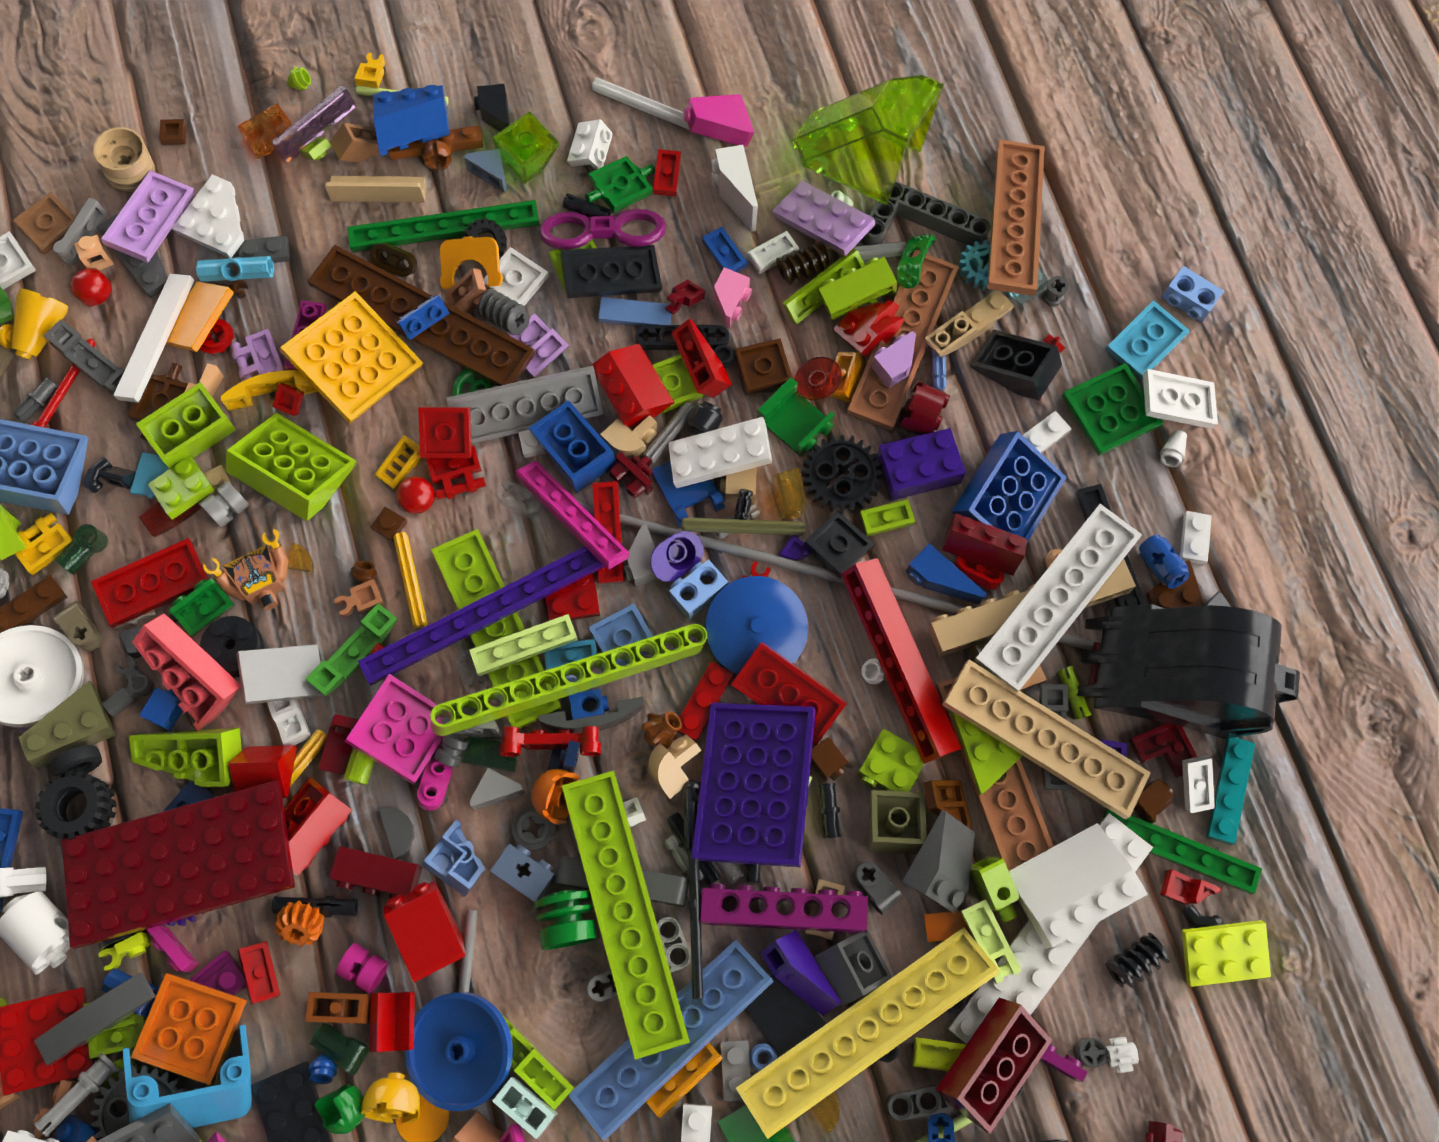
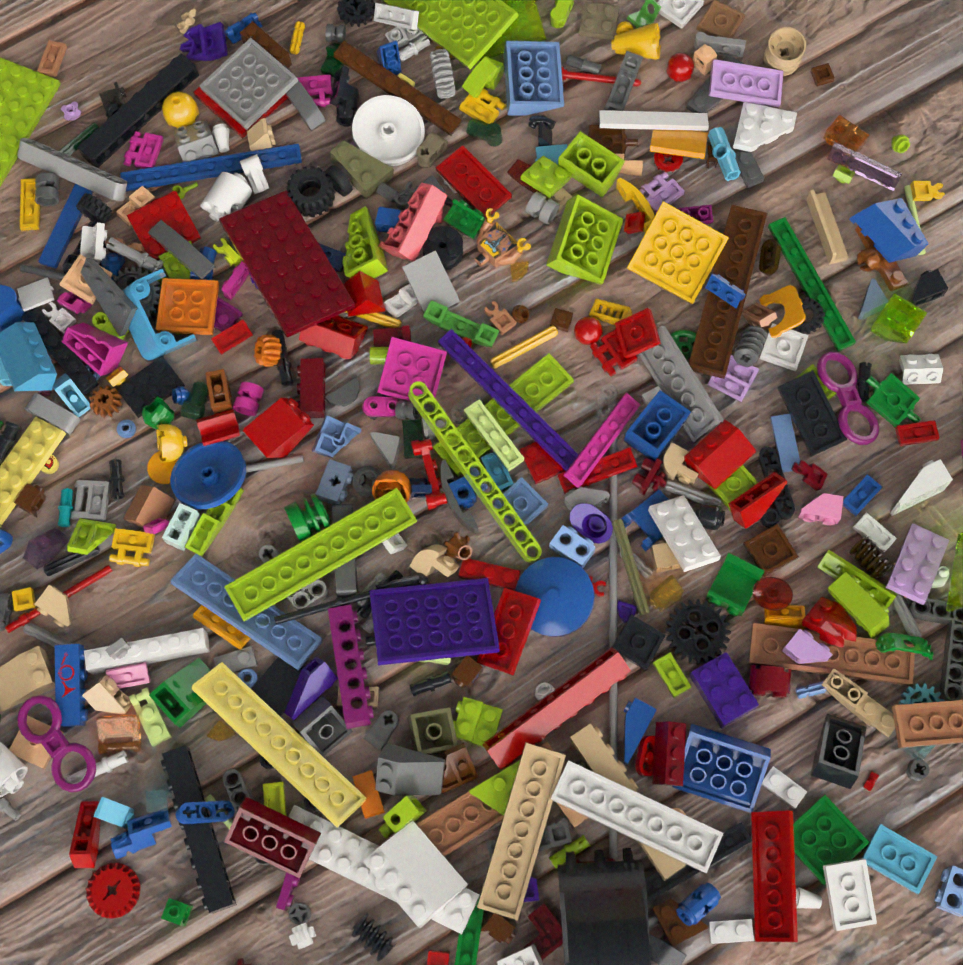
camera: 85 degrees right, 0 degrees up
(355, 142) = (856, 197): medium nougat slope -> none
(743, 504) = (646, 561): black piece -> none
(990, 938) = (361, 818): yellowish green plate -> none
(1147, 471) = (774, 876): none -> red plate

